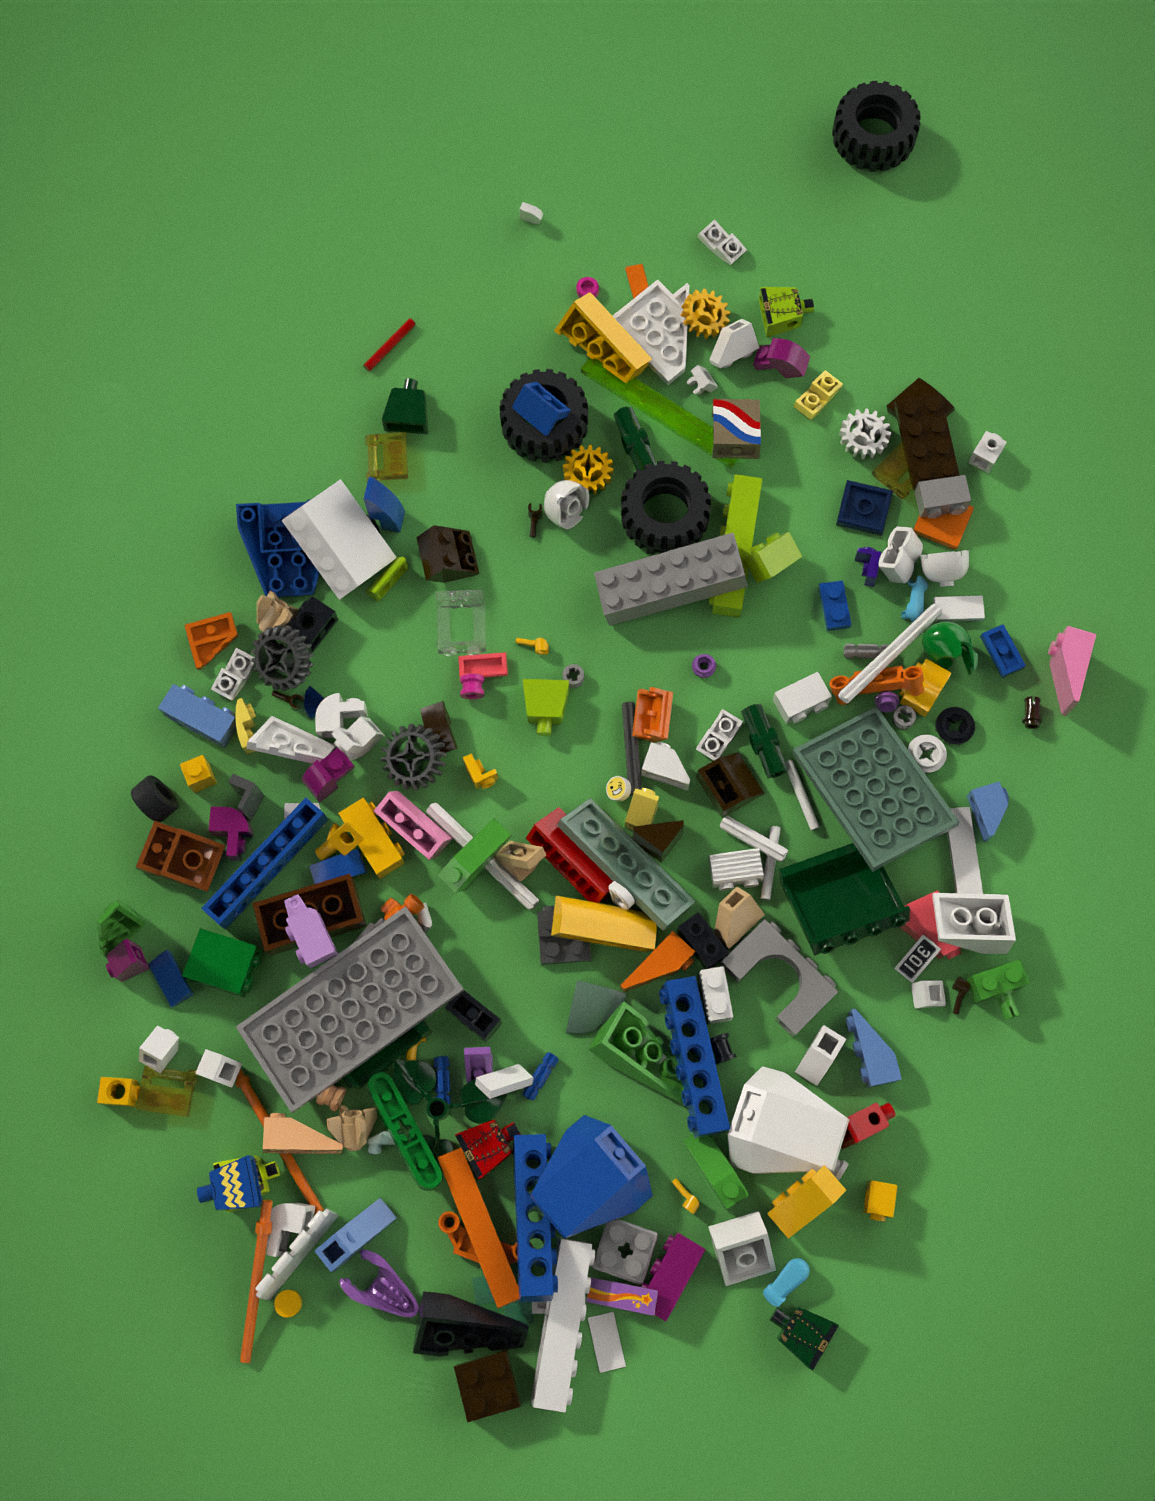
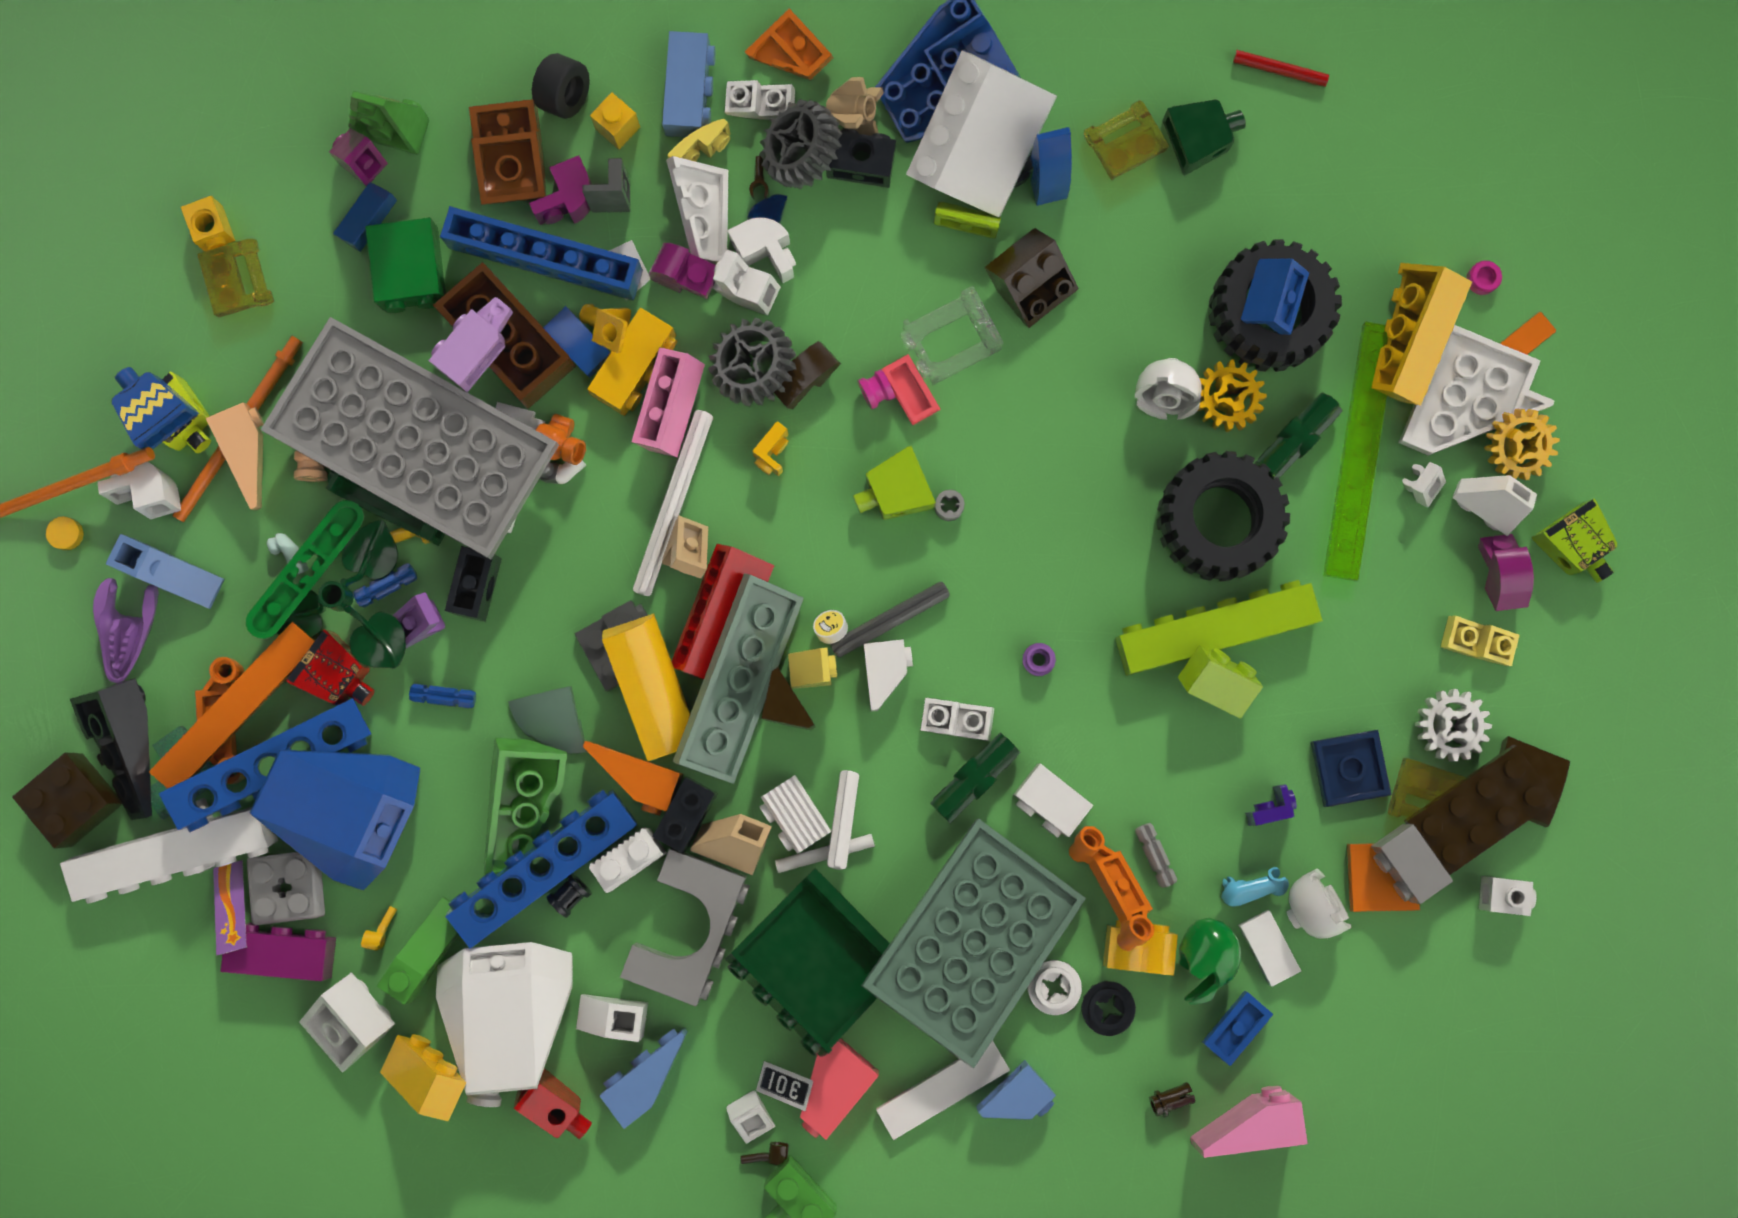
camera: 60 degrees right, 10 degrees up
(159, 1049) = (275, 244): white brick -> none
(218, 1068) = (281, 322): white brick -> none
(300, 1248) = (115, 514): white windscreen -> none
(351, 1127) = (284, 508): tan brick -> none
(474, 856) = (661, 494): bright green slope -> none
(504, 1081) = (411, 656): white tile -> none
(530, 213) = (1554, 154): white tile -> none
(534, 516) = (1133, 360): dark brown hand -> none
(540, 644) = (968, 448): yellow hand -> none
(606, 1342) = (179, 912): white sticker -> none
(620, 895) = (691, 691): white tile -> none
(652, 714) = (942, 624): orange hinge -> none
(670, 579) = (1127, 567): light grey brick -> none
(720, 243) = (1637, 419): white slope -> none
(729, 783) = (899, 760): dark brown slope -> none
(736, 428) = (1377, 556): panel -> none
(789, 1279) = (334, 1093): medium azure piece -> none
(802, 796) = (928, 854): white bar -> none
(804, 1333) = (281, 1138): dark green torso -> none
(834, 605) = (1198, 788): blue plate -> none
(880, 1200) = (473, 1162): yellow brick -> none
(886, 701) = (1098, 908): medium lavender plate -> none
(890, 653) = (1162, 887): white axle -> none
(900, 555) = (1304, 843): white brick -> none
(908, 711) = (1079, 937): light grey bush -> none
(975, 921) = (857, 1138): white slope -> none

